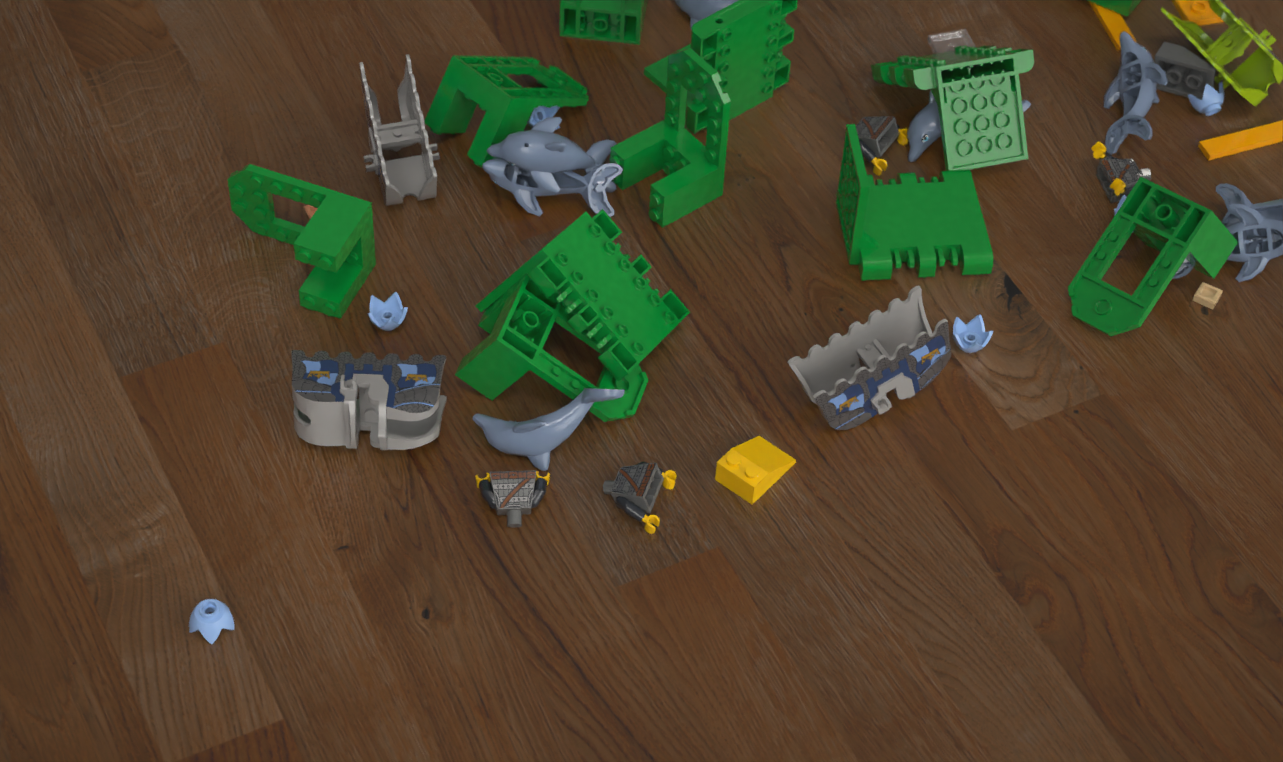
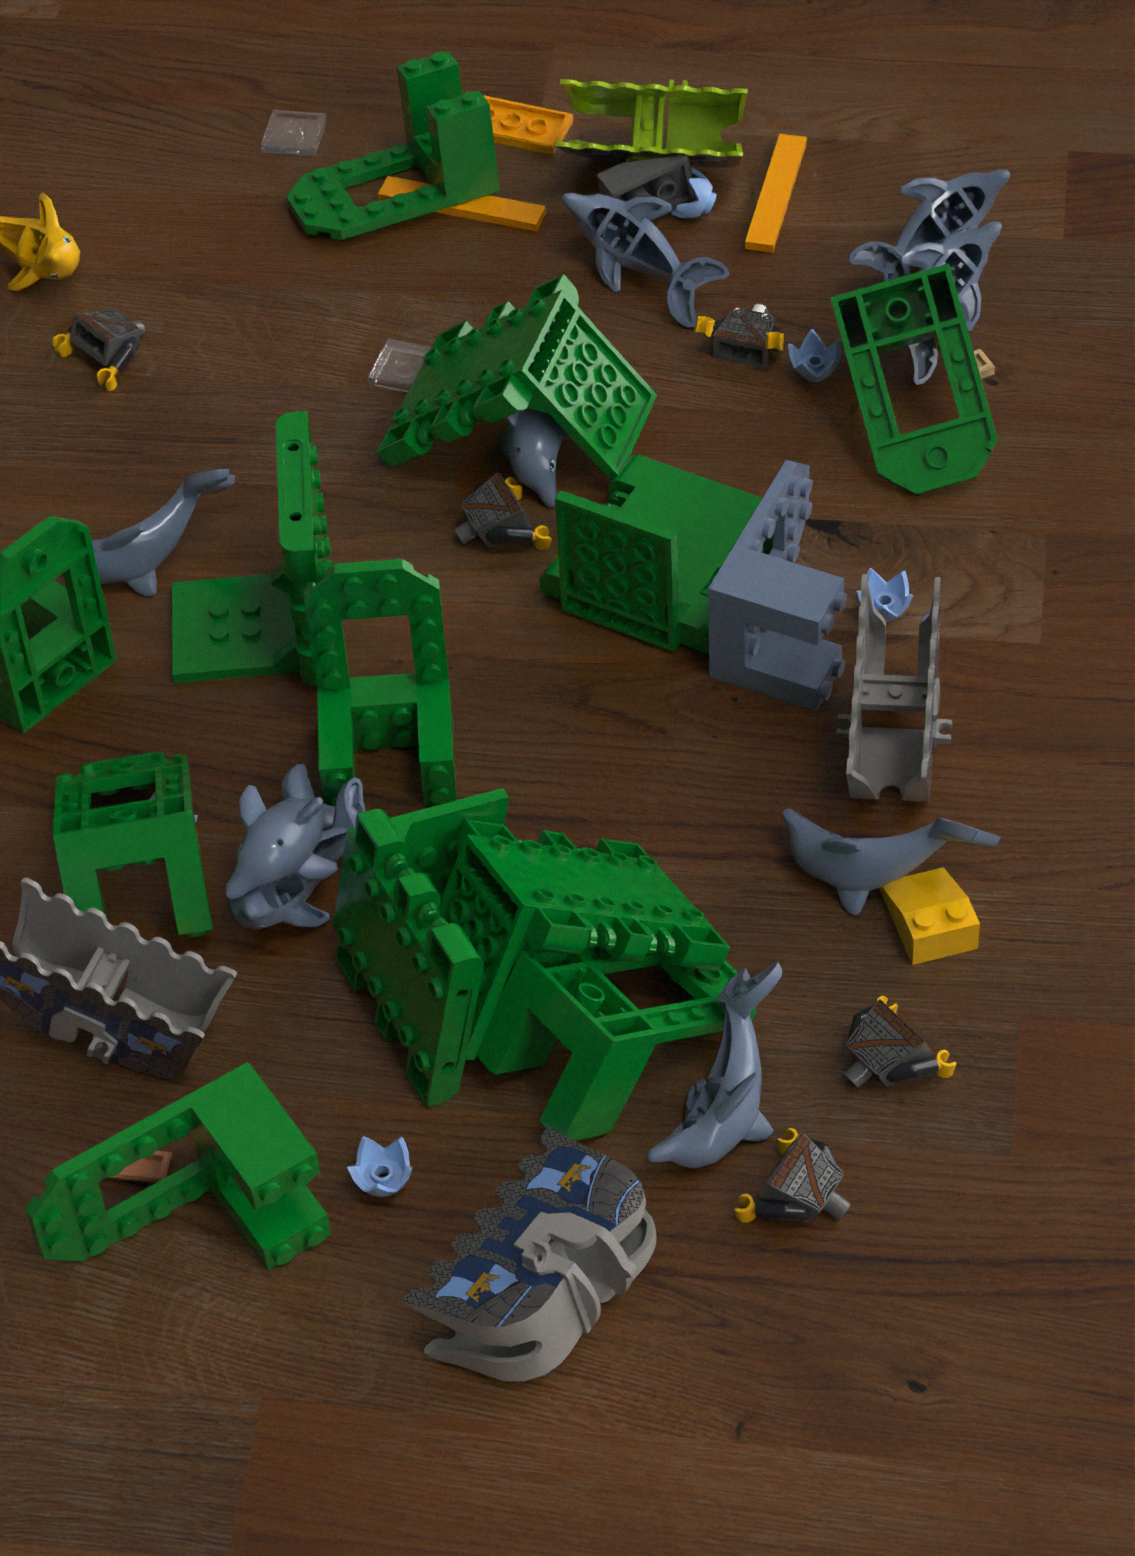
camera: 50 degrees left, 0 degrees up
(532, 210) = (399, 943): none -> green bracket
(758, 417) = (870, 863): none -> sand blue animal
(885, 269) = (774, 612): none -> sand blue bracket

